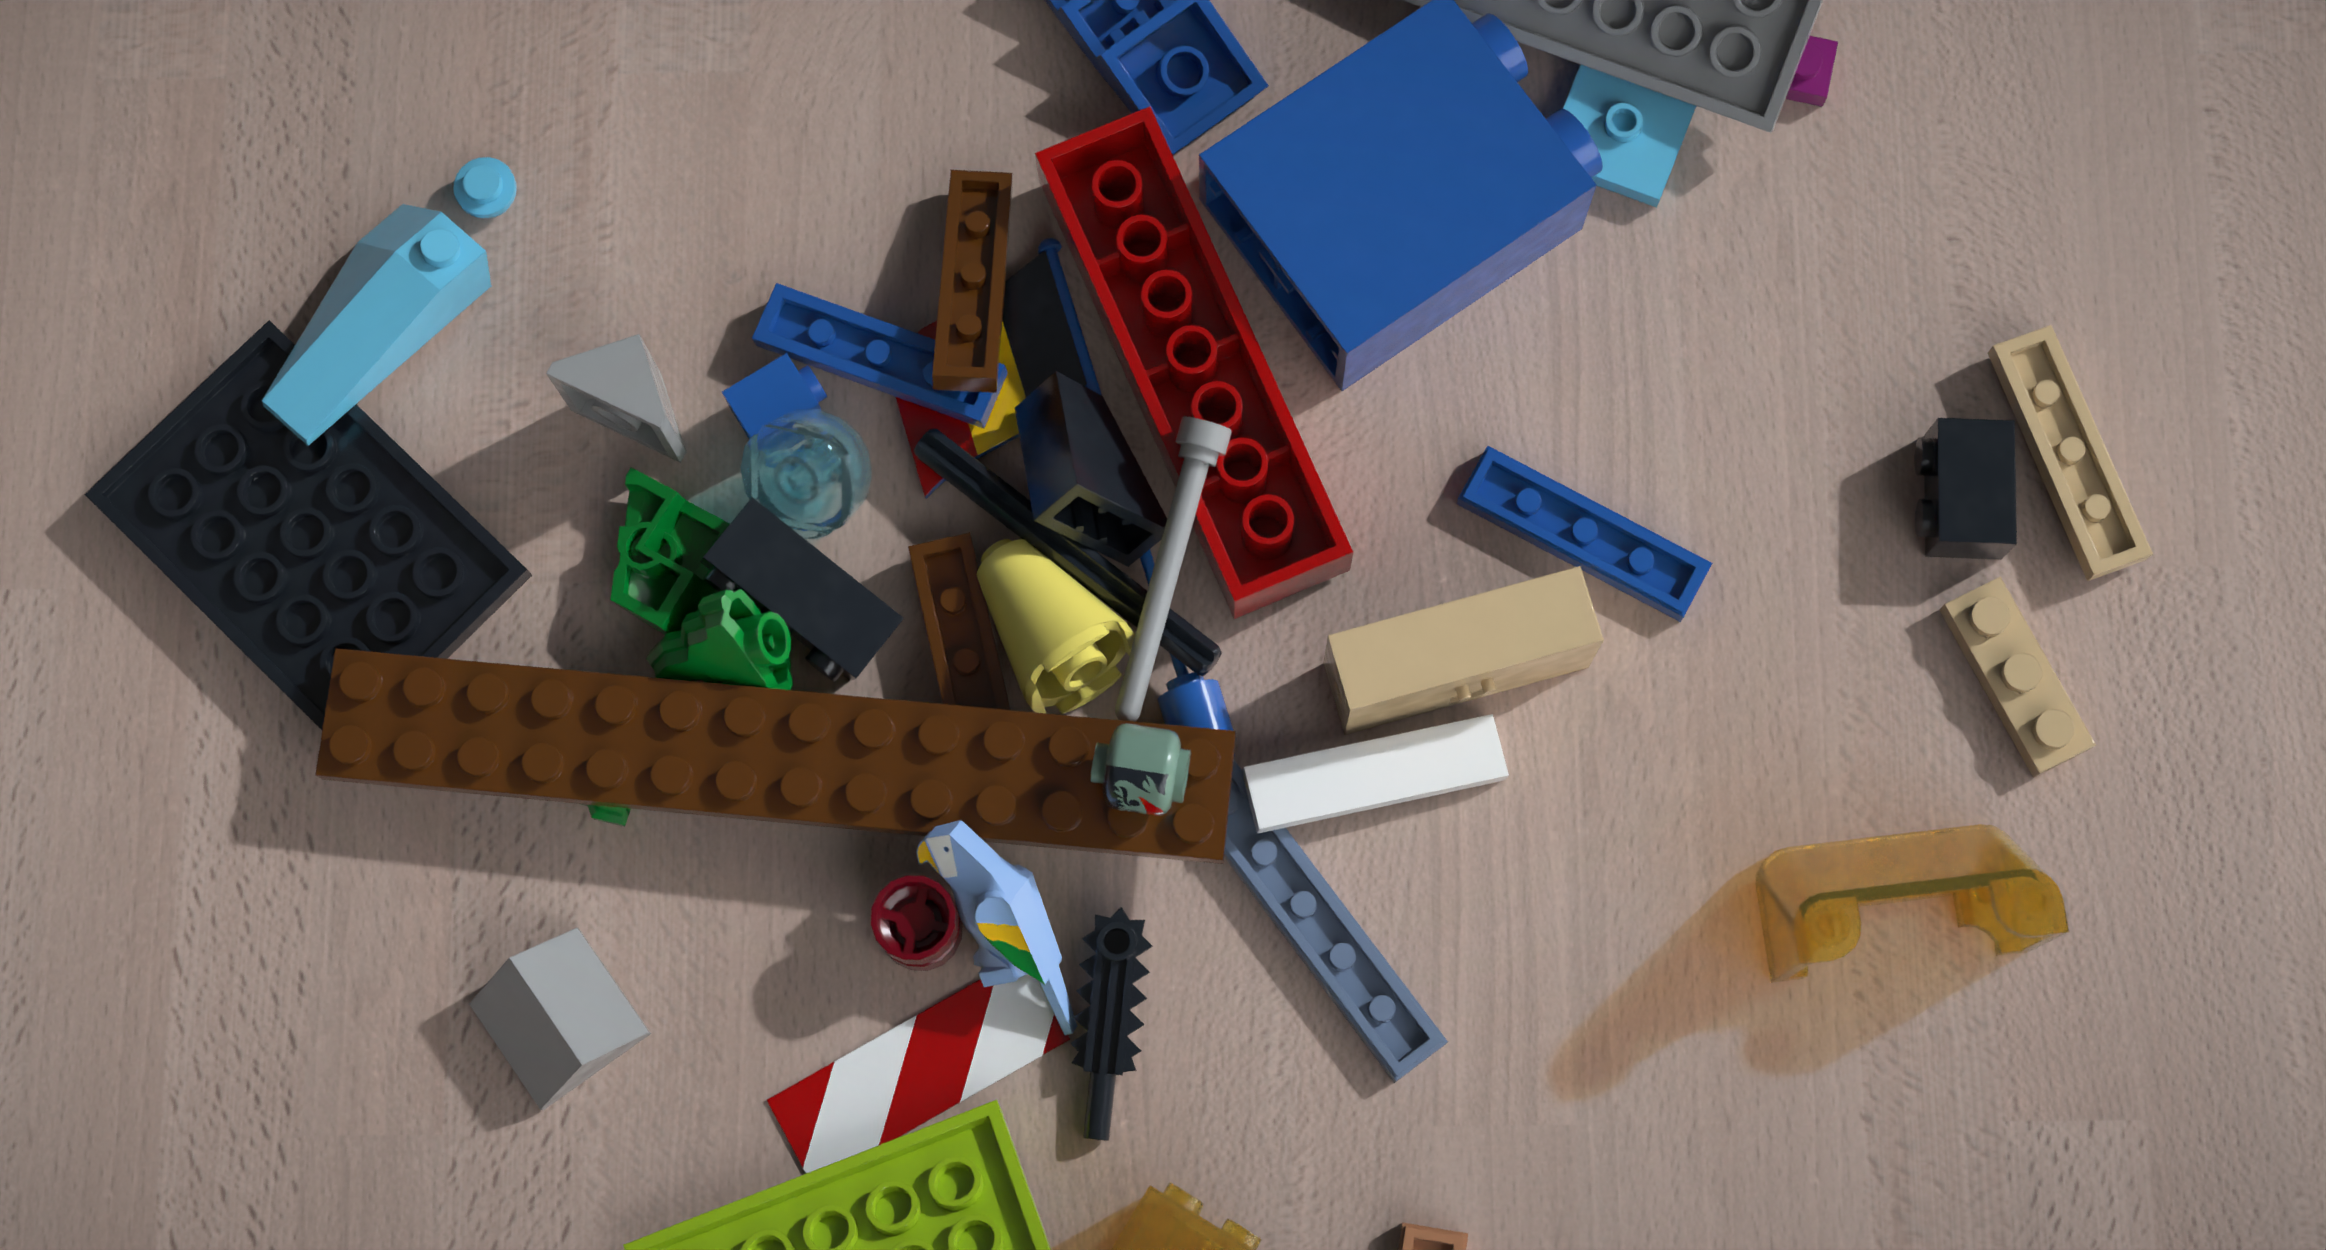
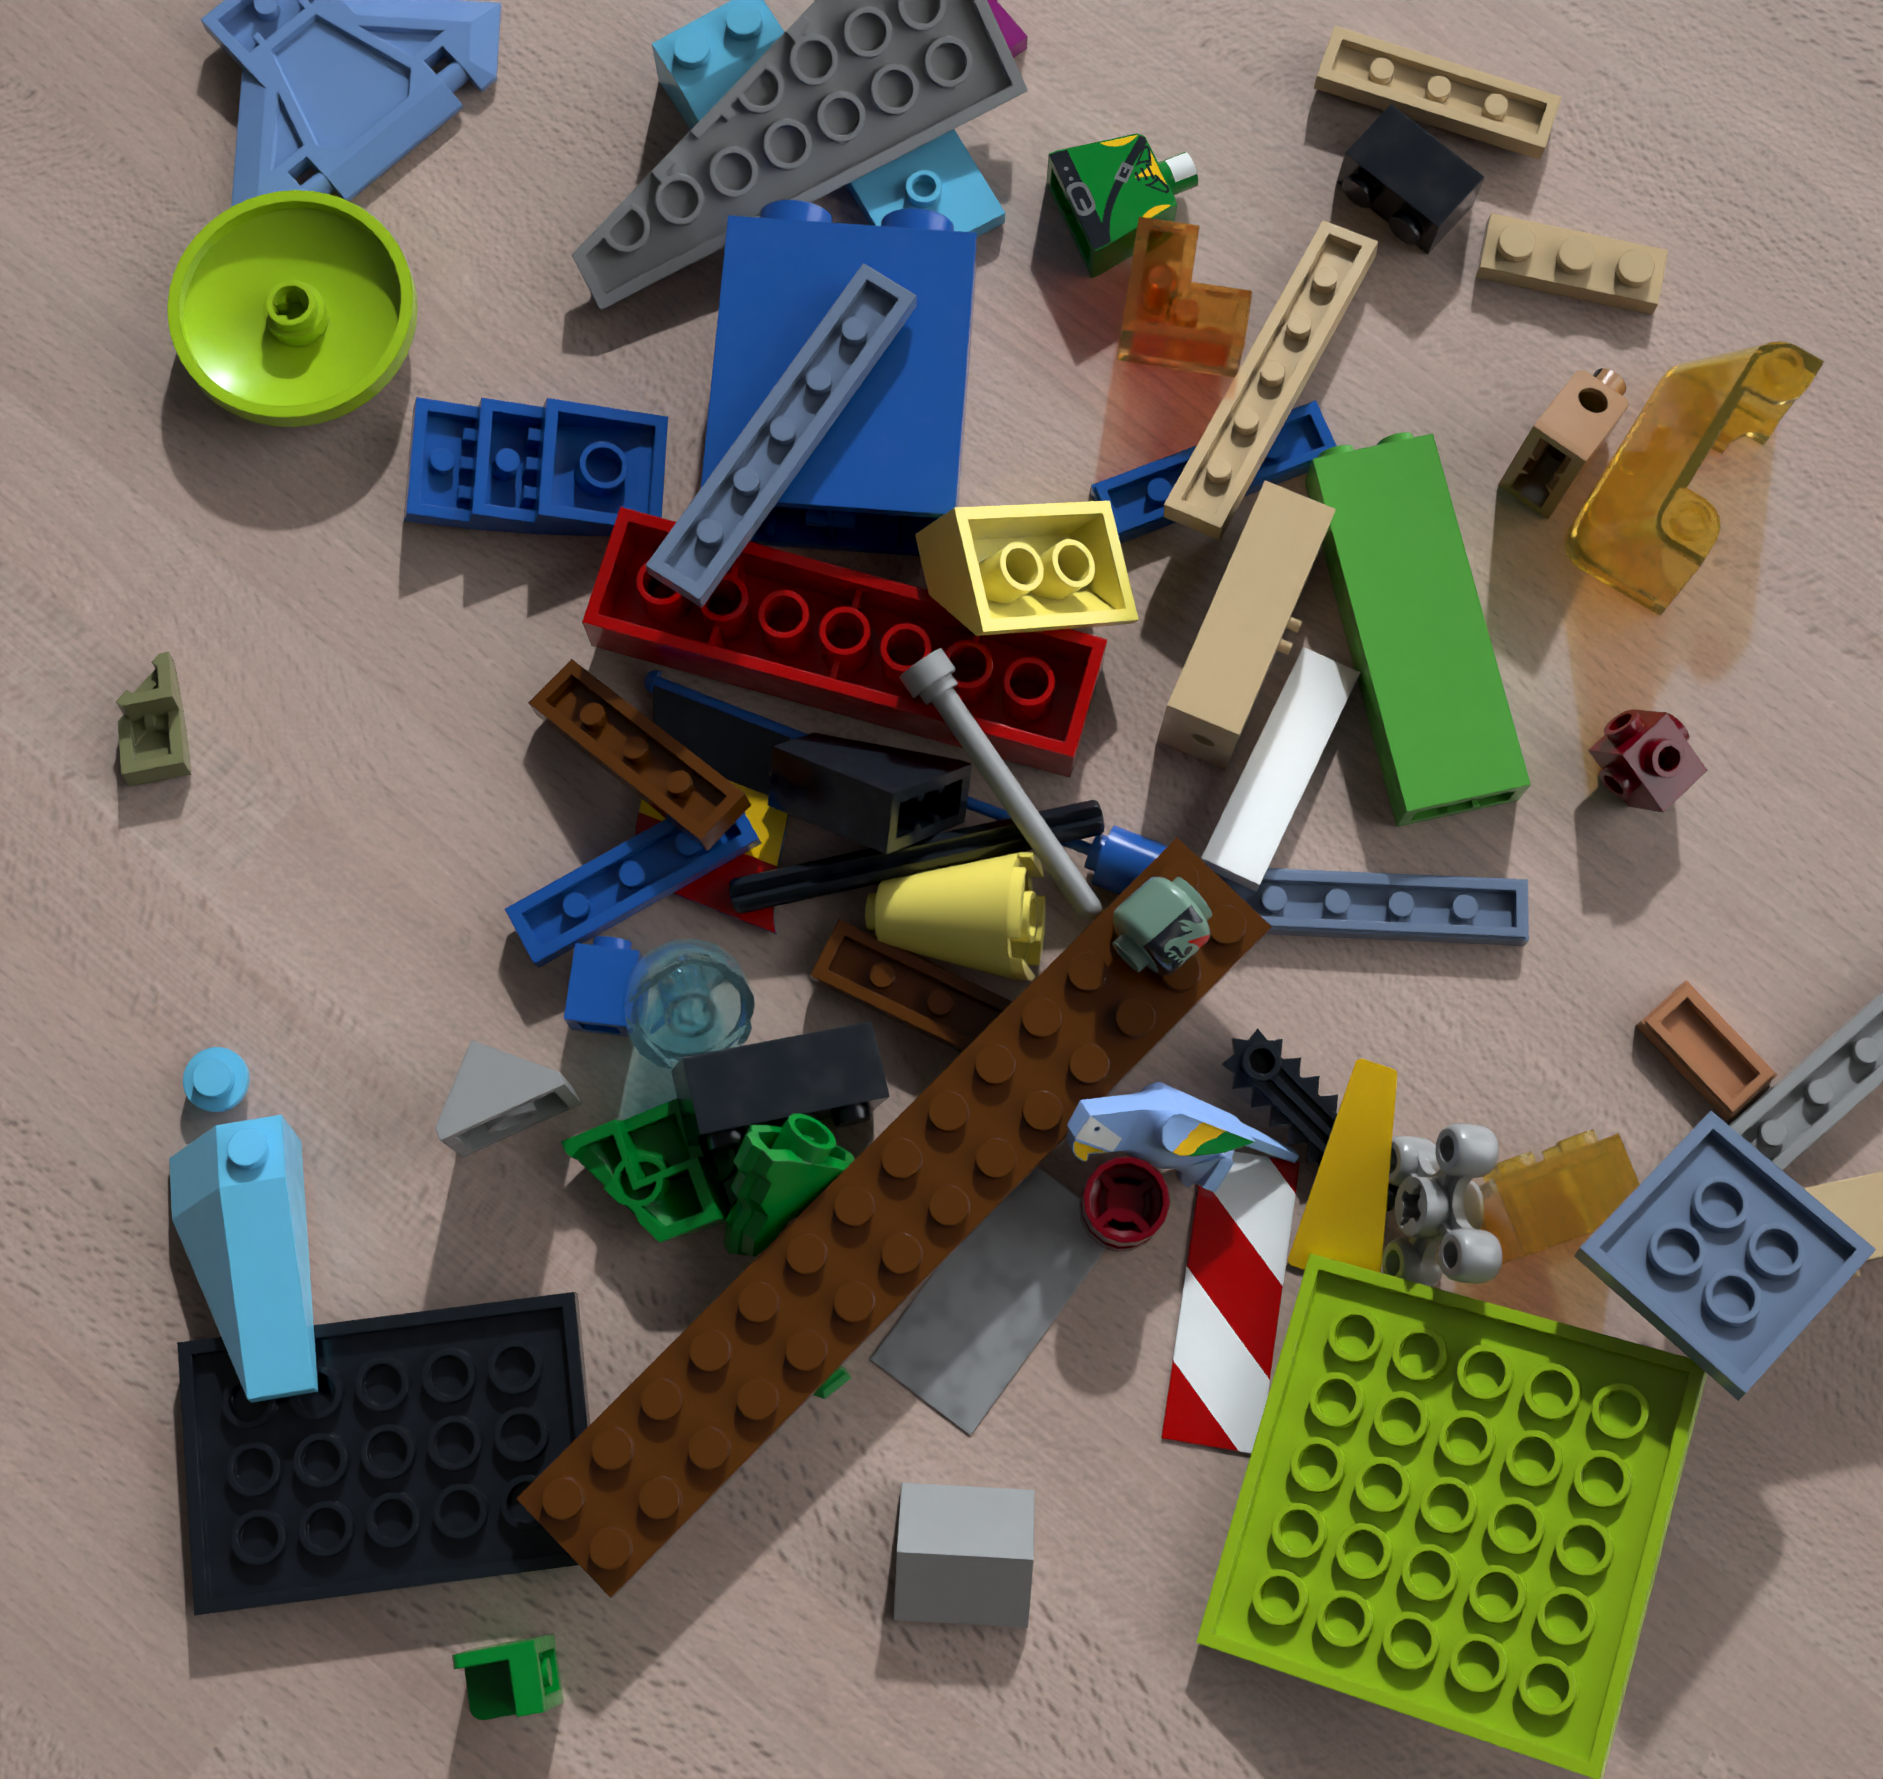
camera: 55 degrees left, 0 degrees up
(209, 754) = (512, 1677): none -> green panel
(770, 886) = (991, 1301): none -> flat silver sticker
(1074, 1092) = (1351, 1186): none -> yellow sticker
(1105, 1168) = (1442, 1207): none -> light grey gear
(1297, 172) = (781, 435): none -> sand blue plate
(1359, 448) = (1028, 567): none -> light yellow slope
(1581, 788) = (1416, 630): none -> bright green brick
(1624, 1057) = (1647, 759): none -> dark red brick
(1677, 389) = (1179, 320): none -> clear orange brick
(1694, 512) = (1270, 380): none -> tan plate
(1749, 274) = (1106, 190): none -> green torso
(1849, 784) = (1574, 424): none -> medium nougat torso

